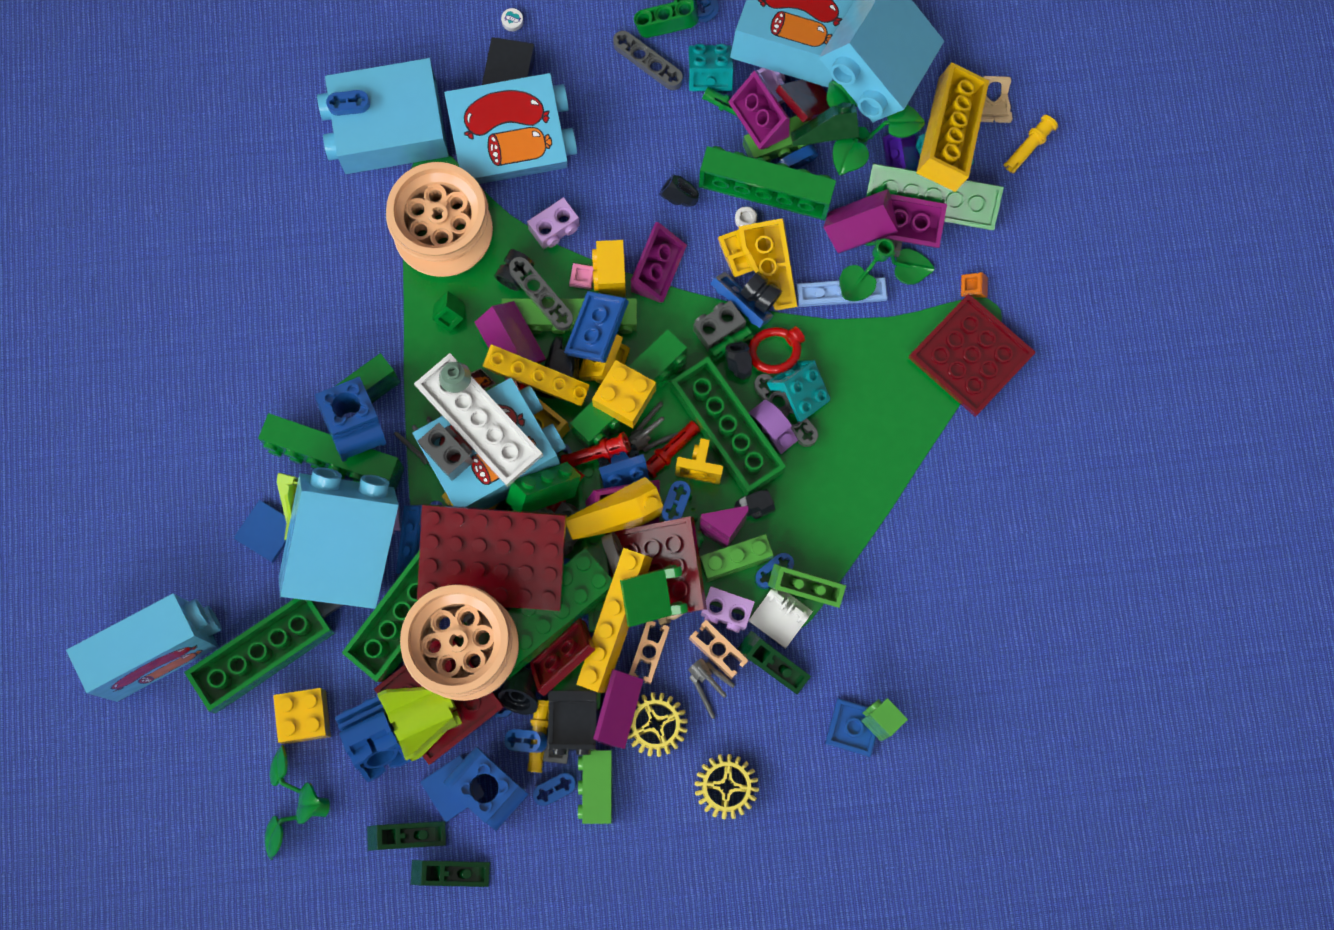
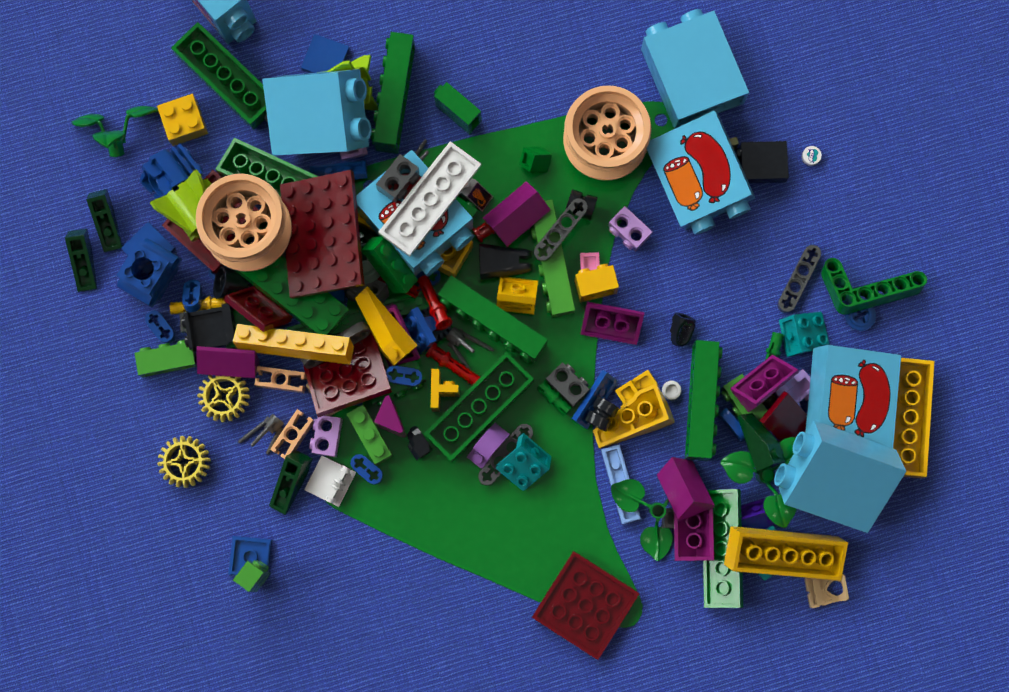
camera: 85 degrees right, 5 degrees up
(348, 102) = (696, 33): blue beam -> none
(354, 433) = (407, 112): blue piece -> none
(455, 377) = (461, 176): sand green cone -> none
(536, 375) = (484, 238): yellow slope -> none
(596, 326) = (540, 281): blue tile -> none
(624, 394) = (480, 313): yellow brick -> none
(648, 596) = (315, 366): green flag -> none
(739, 359) = (539, 405): black rock -> none
(793, 337) = (569, 450): red piece -> none
(806, 585) = (355, 496): bright green brick -> none
(974, 284) = (650, 599): orange slope -> none
(1036, 137) = (800, 632): yellow pin -> none

